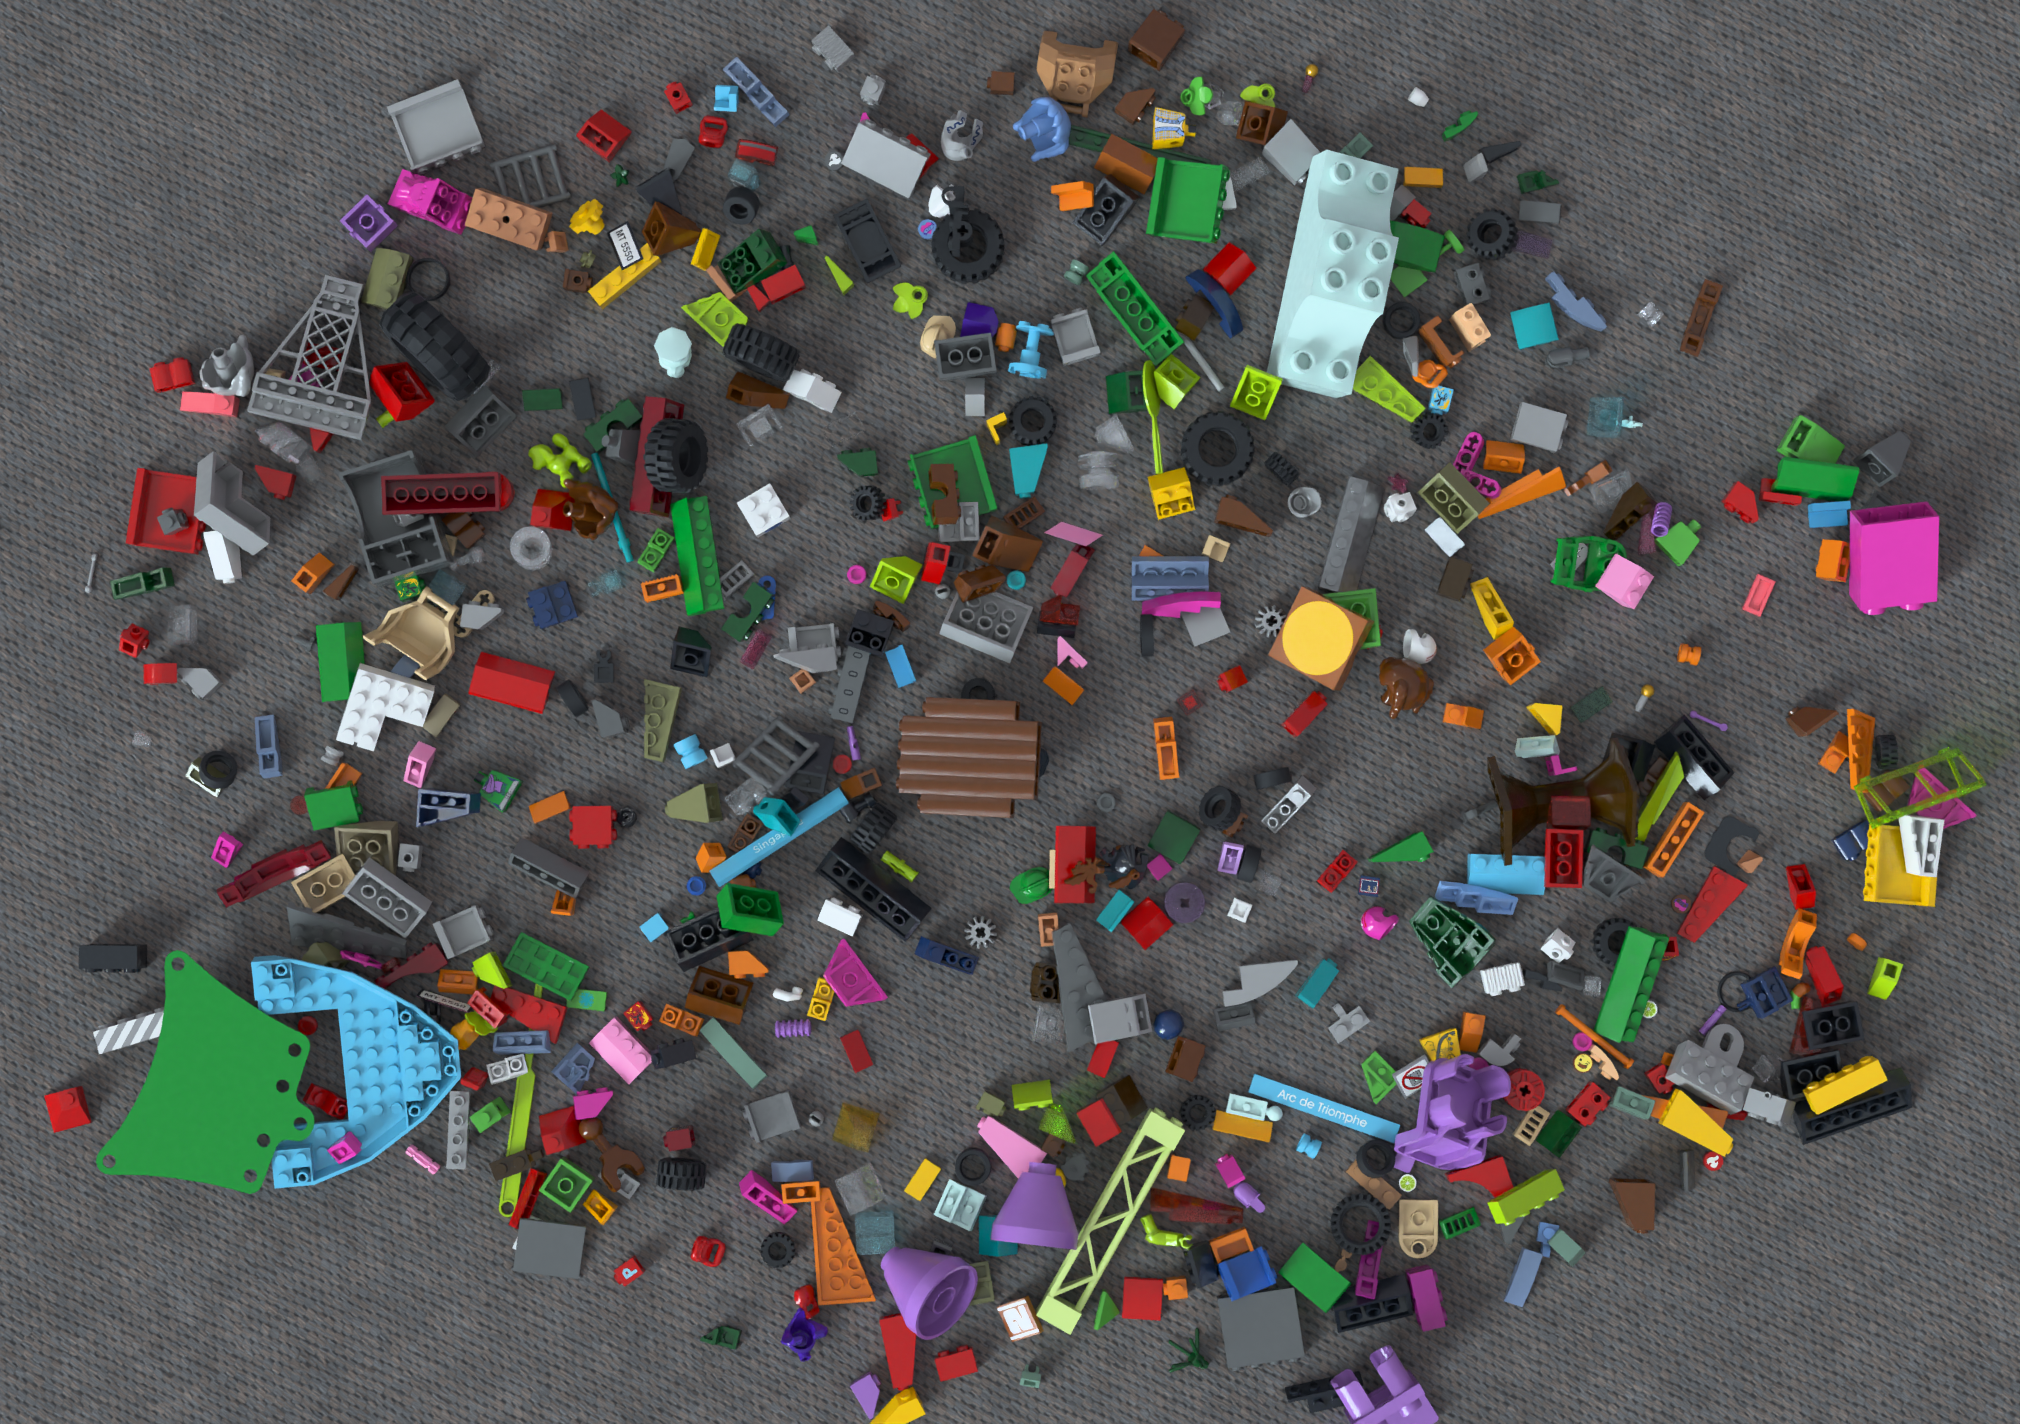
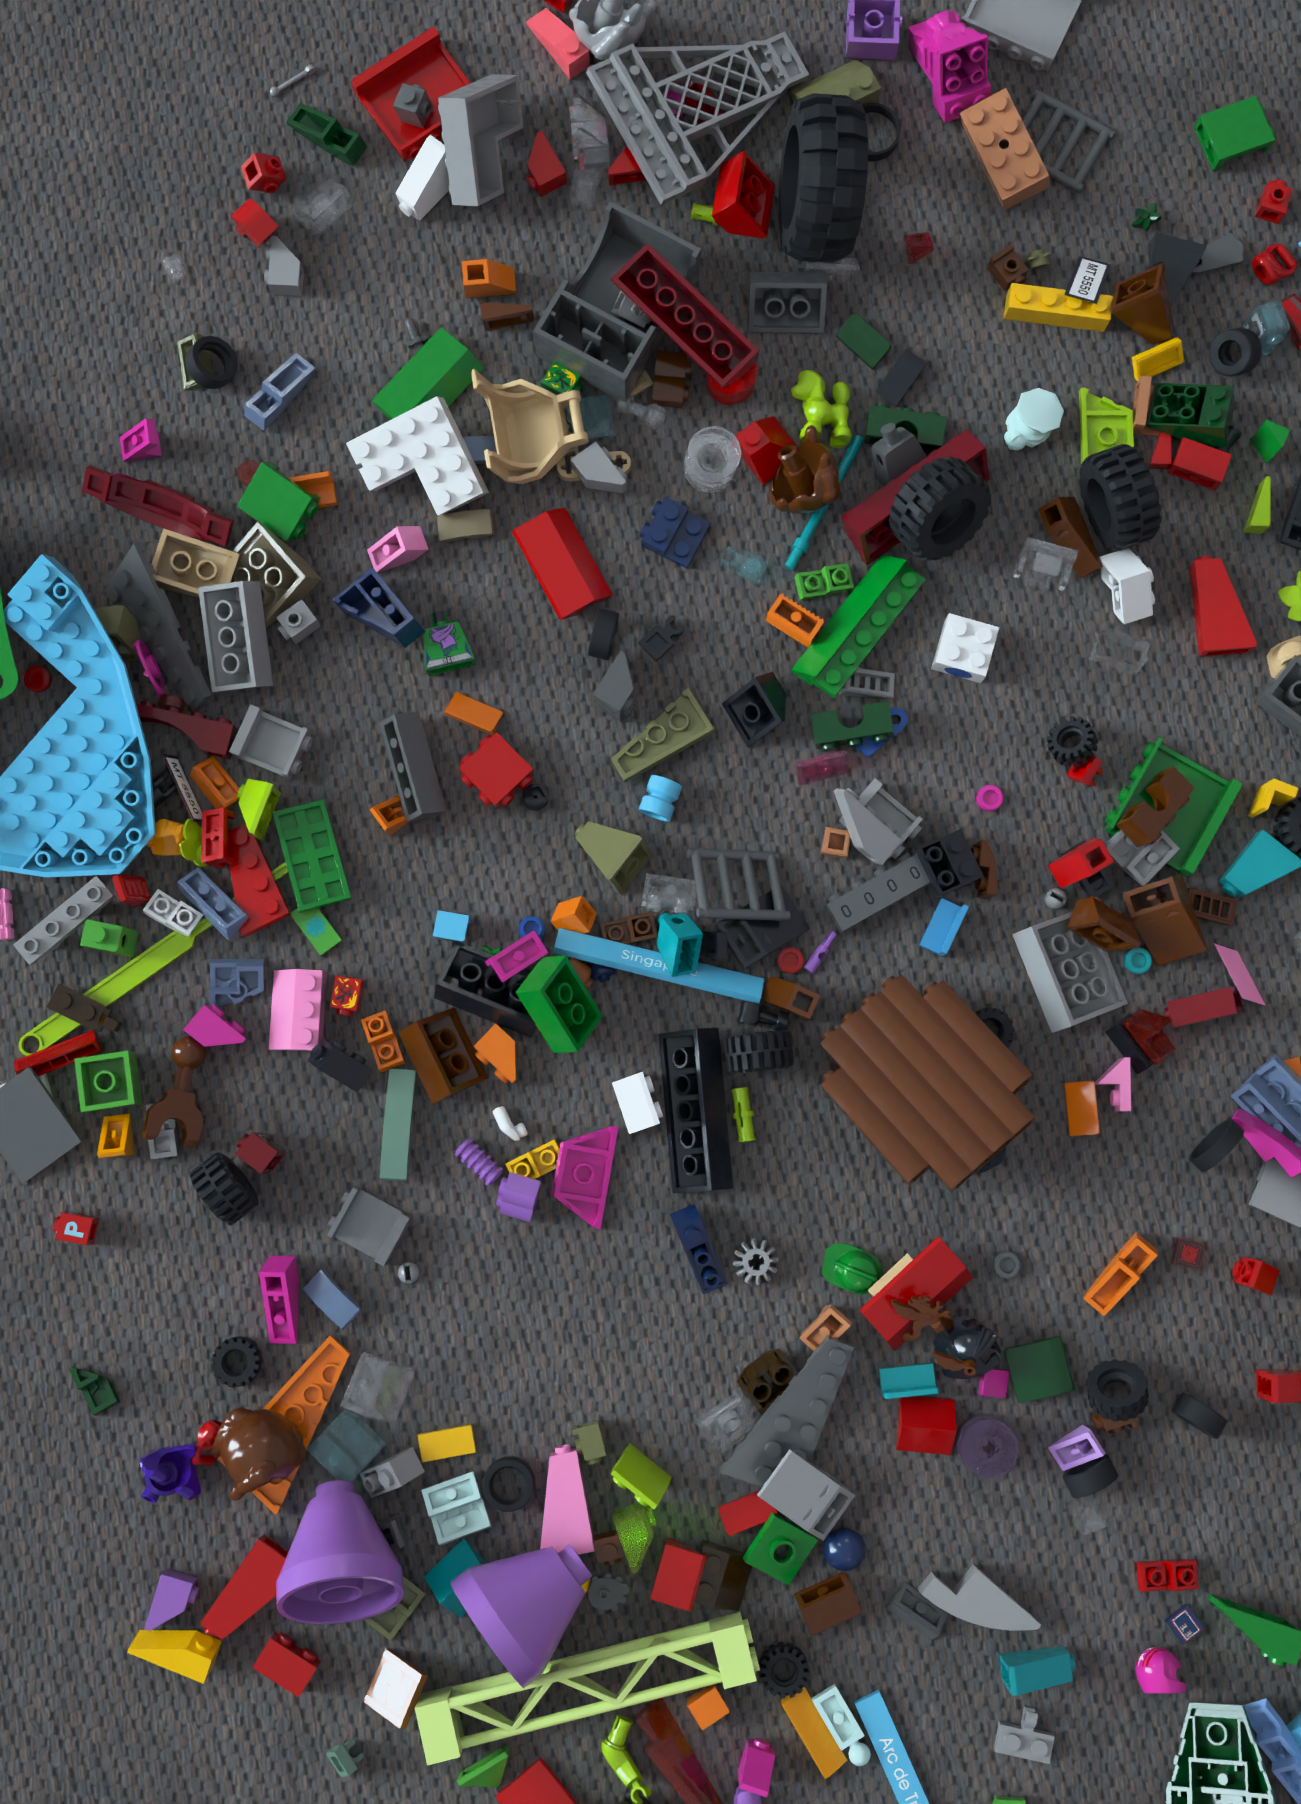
camera: 40 degrees right, 5 degrees down
(332, 756) = (327, 458): light grey wheel -> none
(517, 317) = (917, 246): none -> clear red slope
(557, 242) = (1026, 216): nougat tile -> none
(560, 1130) = (157, 1024): red slope -> none
(588, 218) = (1079, 223): yellow plant -> none
(603, 135) = (1168, 165): red slope -> none
(618, 80) = (1234, 131): none -> green panel
(702, 1249) = (167, 1283): red piece -> none
(703, 908) = (517, 956): none -> dark pink panel
(723, 755) = (686, 834): white panel -> none
(801, 1191) = (318, 1330): orange slope -> none
(830, 1024) = (518, 1196): none -> medium lavender brick
(831, 1277) = (258, 1448): none -> reddish brown piece
(855, 1127) = (437, 1322): clear yellow slope -> none
(856, 1051) = (516, 1249): red slope -> none
(861, 463) = (1102, 698): dark green slope -> none
(876, 357) = (1217, 611): none -> red slope
(896, 577) = (1025, 838): lime slope -> none
(910, 1221) = (392, 1472): none -> light grey slope
(975, 397) = (1274, 750): light grey slope -> none
(1124, 1053) = (773, 1534): none -> green piece
(1239, 910) = (1030, 1510): white tile -> none
(1289, 804) = (1187, 1458): light grey slope -> none

